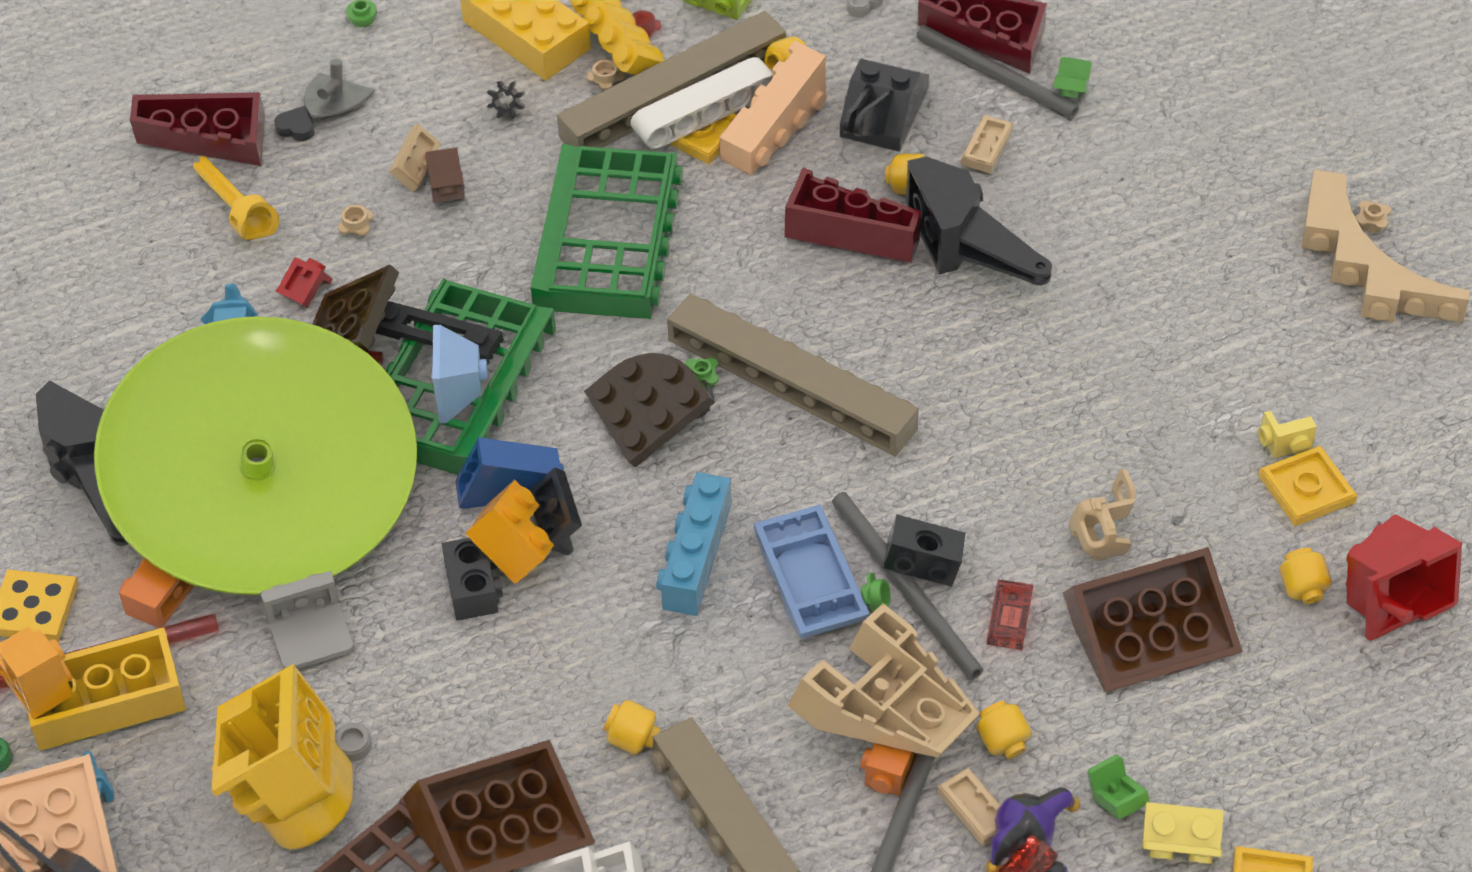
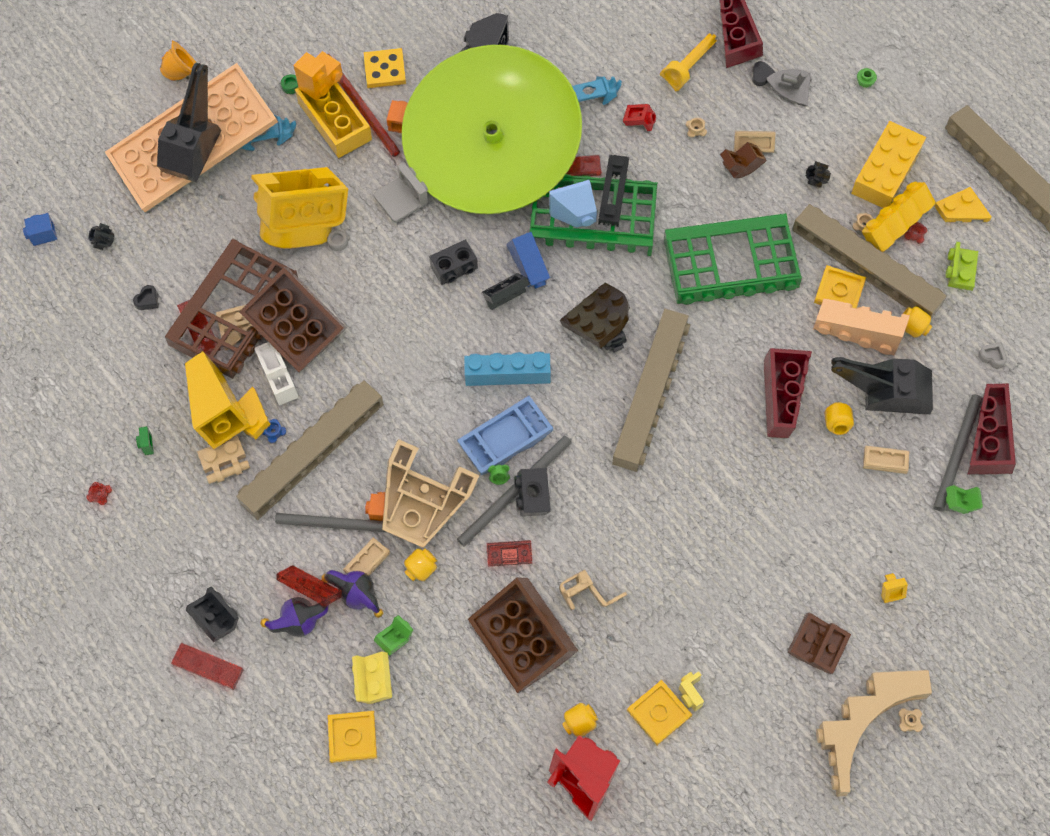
camera: 75 degrees right, 15 degrees up
(358, 307) = (609, 145): dark brown plate -> none
(508, 534) = (478, 266): light orange brick -> none
(631, 727) = (374, 369): yellow head -> none
(700, 103) = (851, 281): white beam -> none
(704, 369) = (639, 346): bright green plate -> none
(961, 230) = (794, 455): black slope -> none
(1181, 182) = (893, 588): none -> yellow tile
(1242, 283) = (819, 643): none -> reddish brown slope

